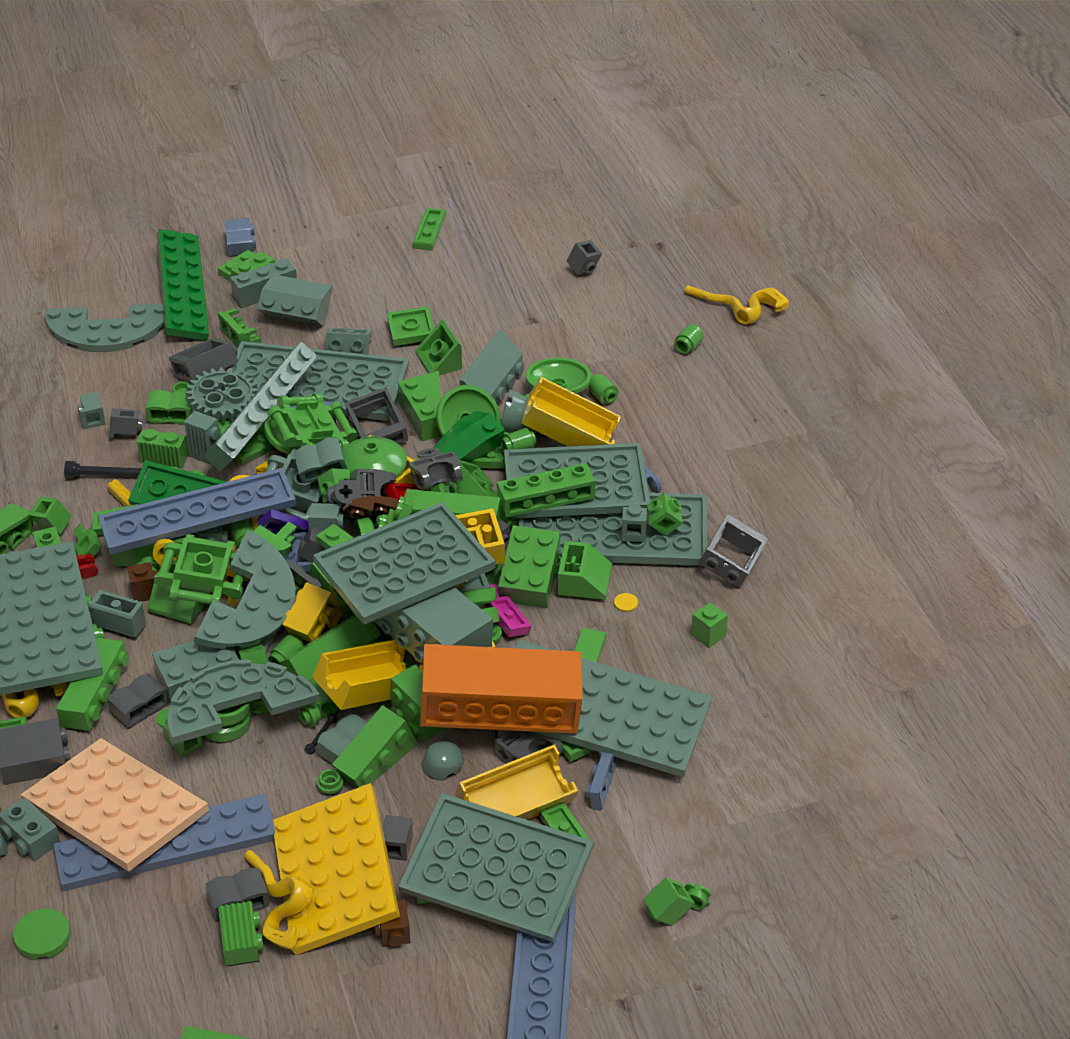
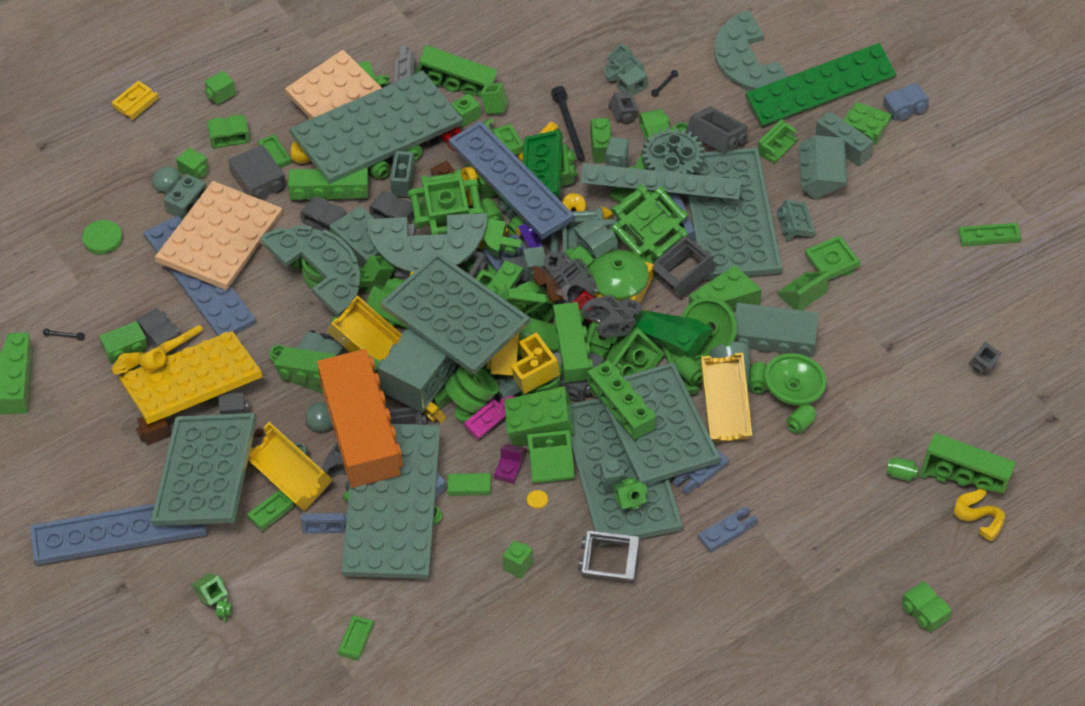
camera: 75 degrees right, 10 degrees up
(56, 416) = (621, 61): none -> sand green brick
(111, 401) = (655, 92): none -> black hinge
(165, 633) = (389, 206): none -> dark grey brick
(199, 986) = (80, 336): none -> black hinge
(571, 611) = (510, 463): none -> magenta slope
(708, 292) = (966, 464): none -> bright green wedge
(717, 470) = (727, 530): none -> sand blue hinge
(767, 785) = (355, 637): none -> bright green tile
(851, 360) = (926, 606): none -> bright green brick

